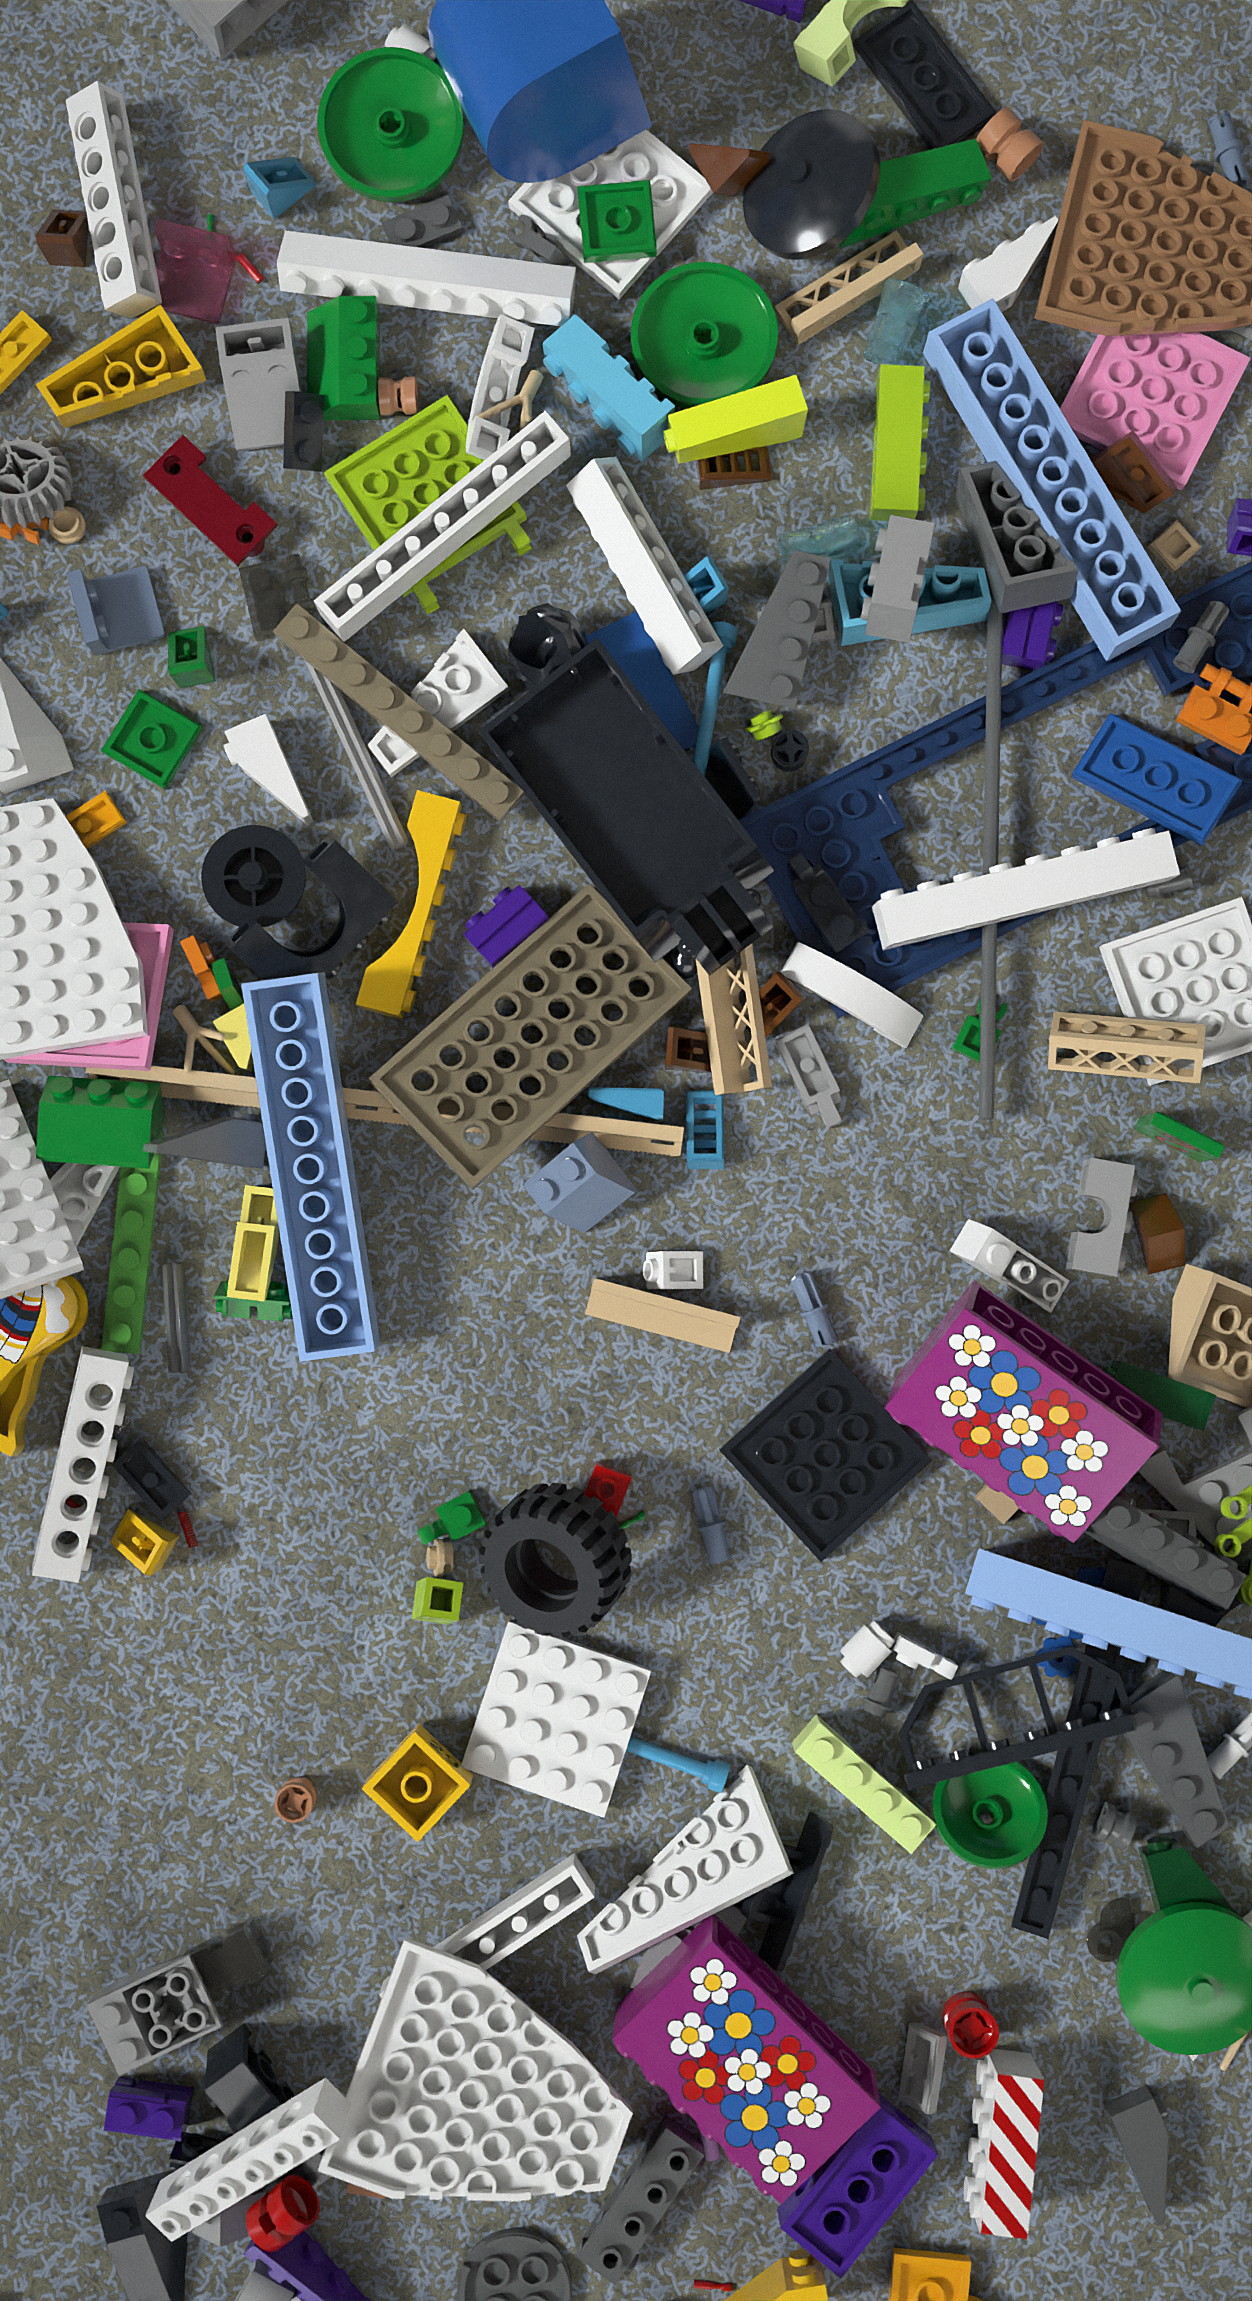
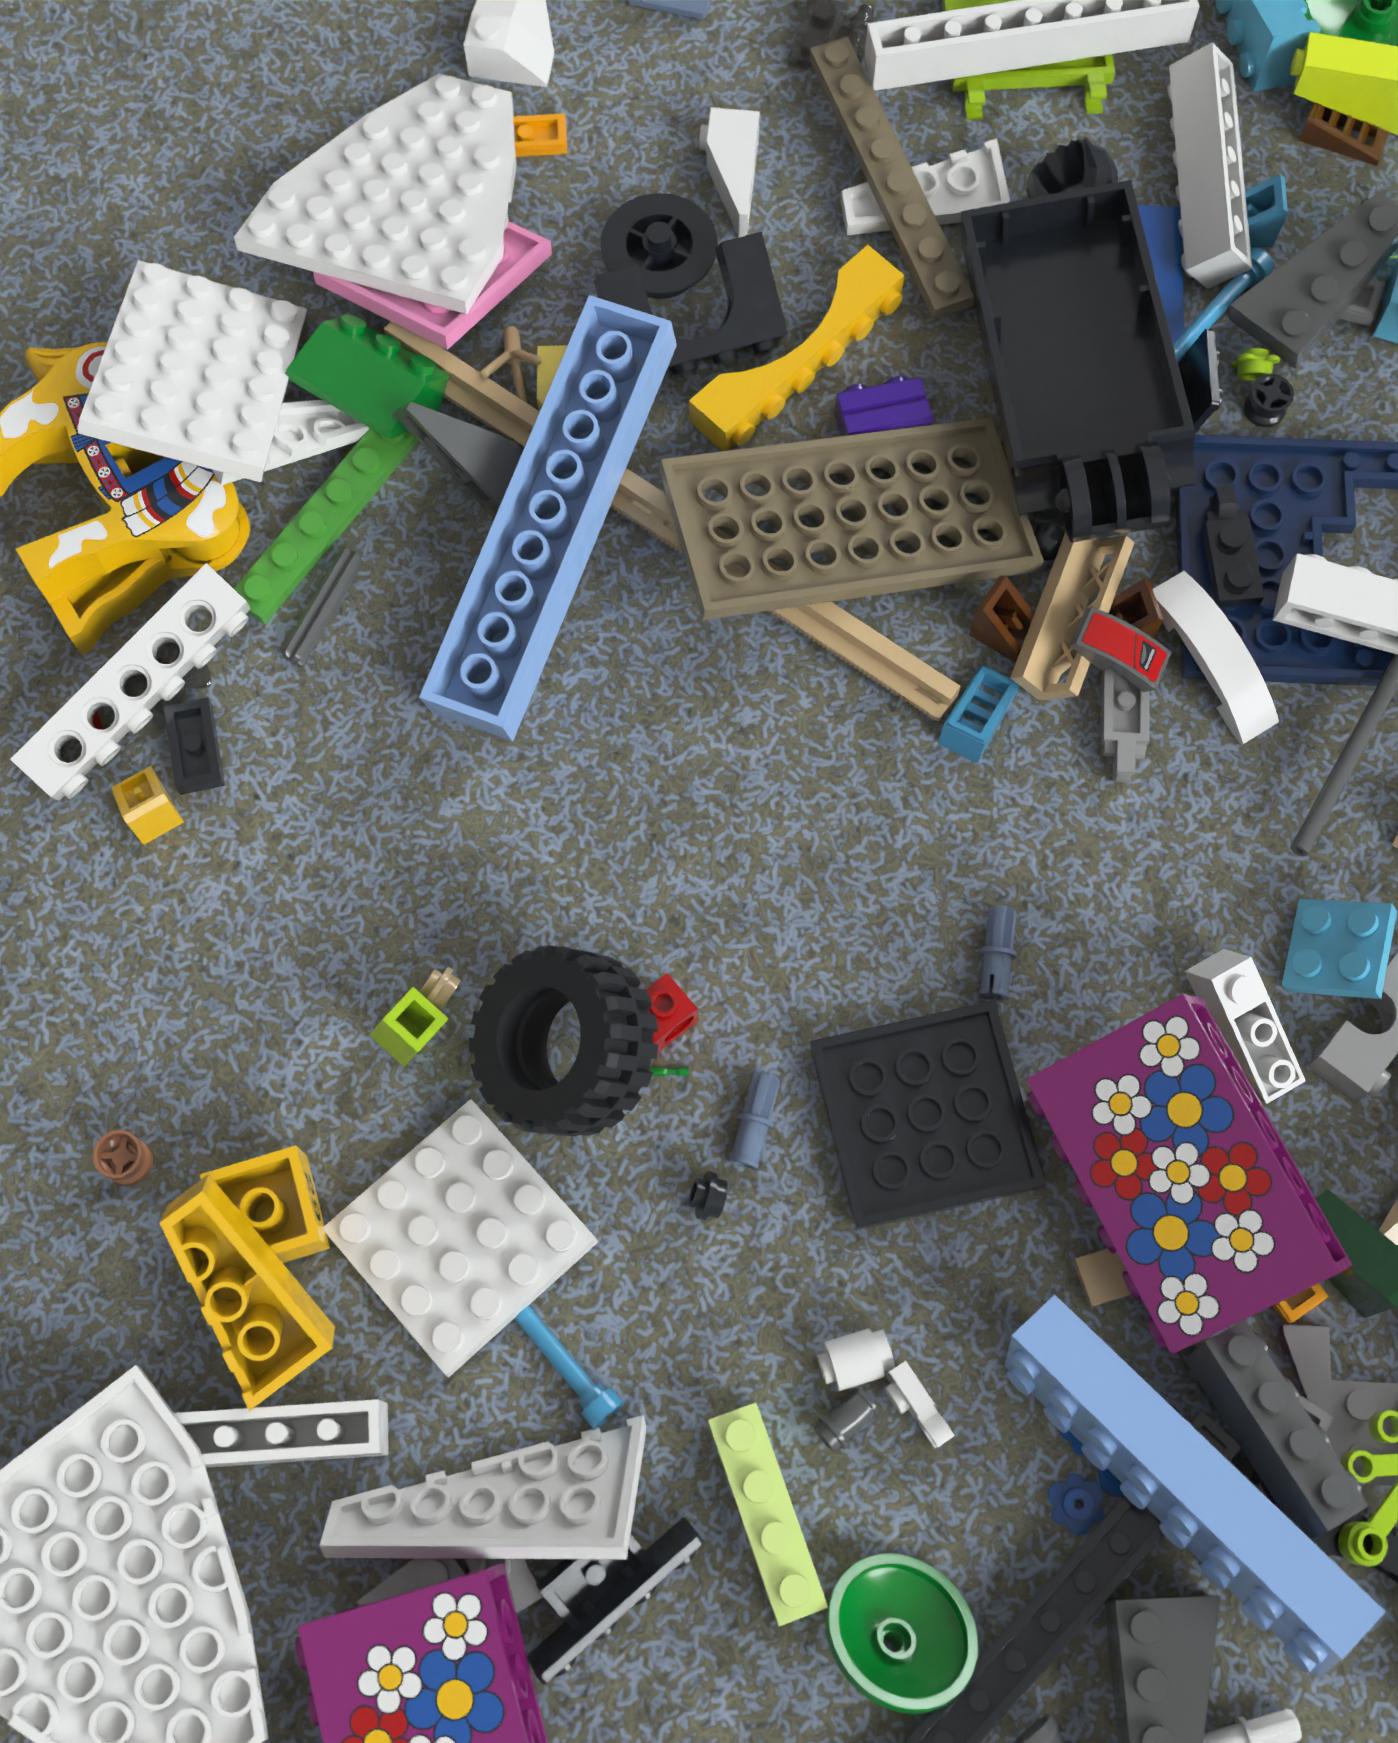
camera: 30 degrees right, 15 degrees down
(152, 739) = (636, 95): green tile -> none
(184, 1529) = (193, 821): red leg -> none
(190, 657) = (714, 46): green slope -> none
(200, 959) = (561, 294): orange plate -> none
(227, 983) = (570, 317): green tile -> none
(254, 1245) = (441, 573): light yellow slope -> none
(275, 1308) = (396, 620): green hinge -> none
(360, 760) = (826, 206): light grey axle -> none
(446, 1851) = (245, 1292): none -> yellow wedge
(457, 1518) = (478, 959): green plate -> none
(580, 1184) = (817, 685): sand blue slope -> none
(639, 1101) = (916, 635): dark azure slope -> none
(662, 1315) = (830, 868): tan fence -> none
(674, 1270) = (867, 830): white bracket -> none
(709, 1596) = (708, 1196): none -> black plate
(784, 1034) = (1119, 645): none -> slope
(968, 1038) = (1316, 767): green plate -> none
(1036, 1742) = (1005, 1568): black plate -> none
(1048, 1176) = (1340, 948): none -> medium azure plate

